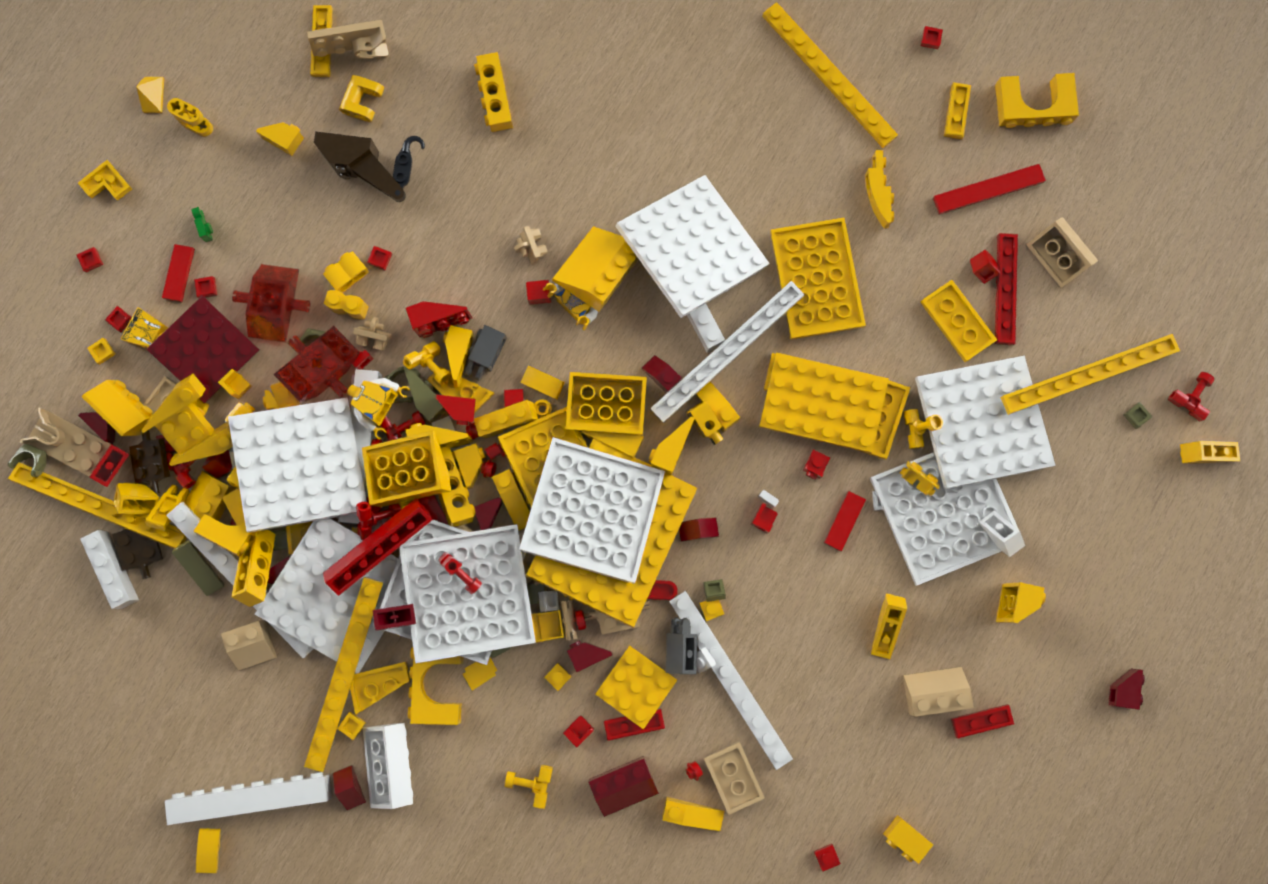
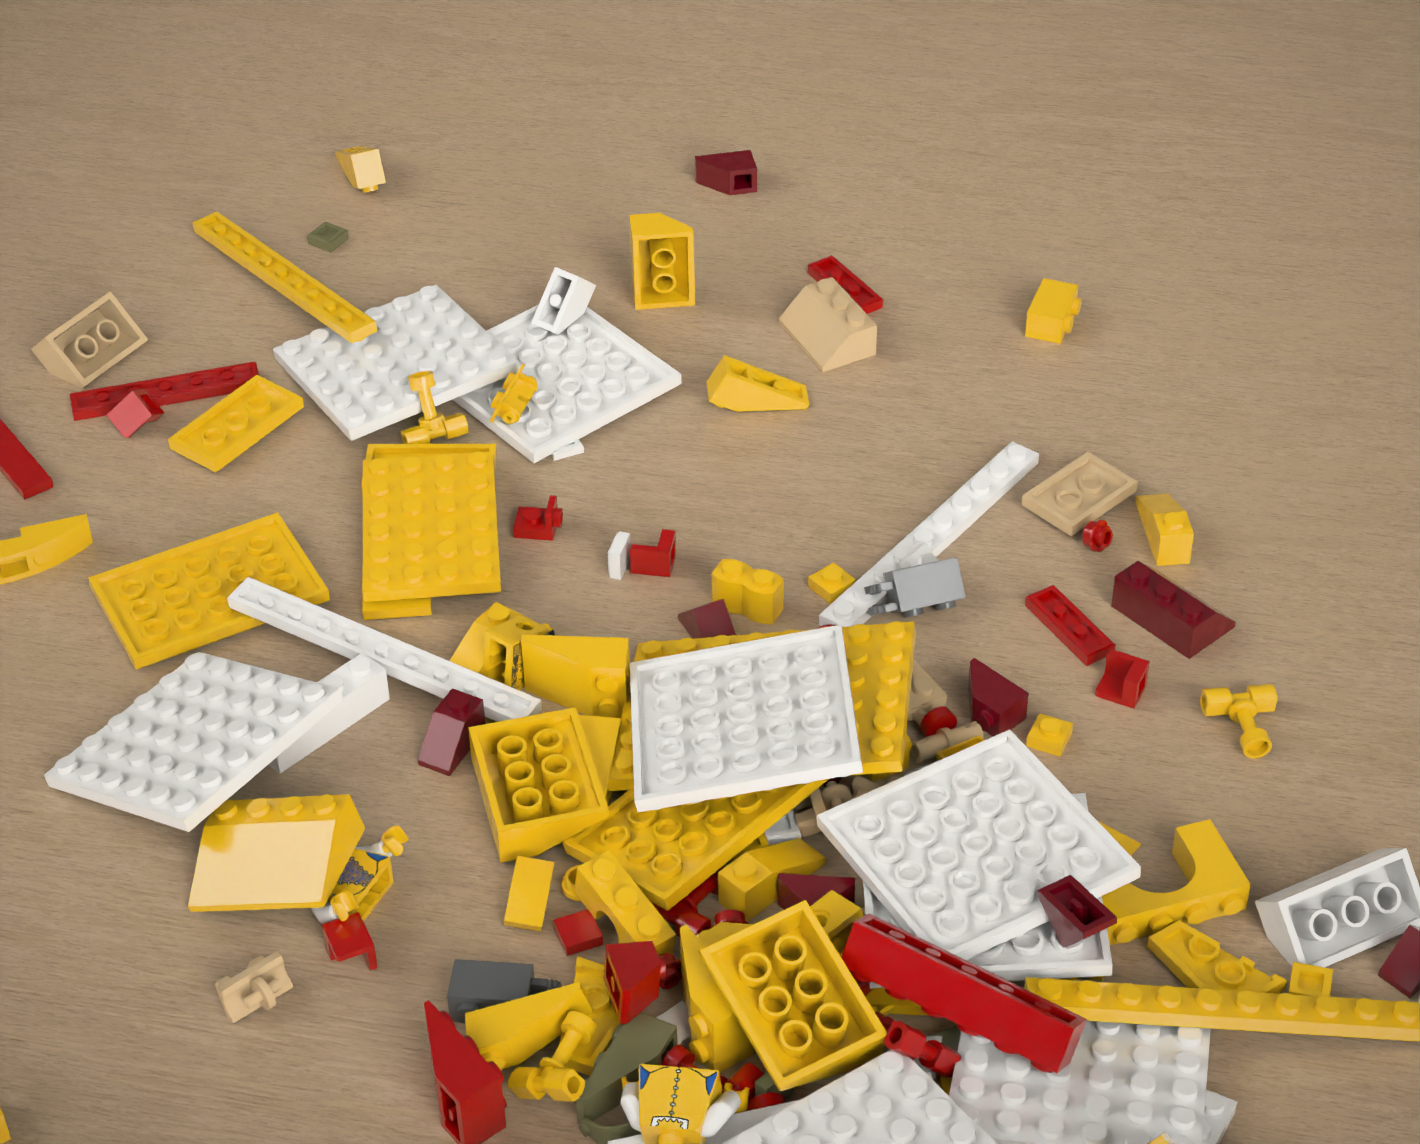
camera: 110 degrees left, 40 degrees down
(454, 567) = (942, 833): red bar -> none
(636, 687) = (1009, 630): yellow plate -> none
(714, 590) = (801, 581): olive tile -> none
(717, 553) = (748, 591): none -> yellow brick
(827, 857) = (1129, 382): red plate -> none
(844, 521) = (615, 473): red tile -> none
(1192, 401) = (289, 194): red bar -> none

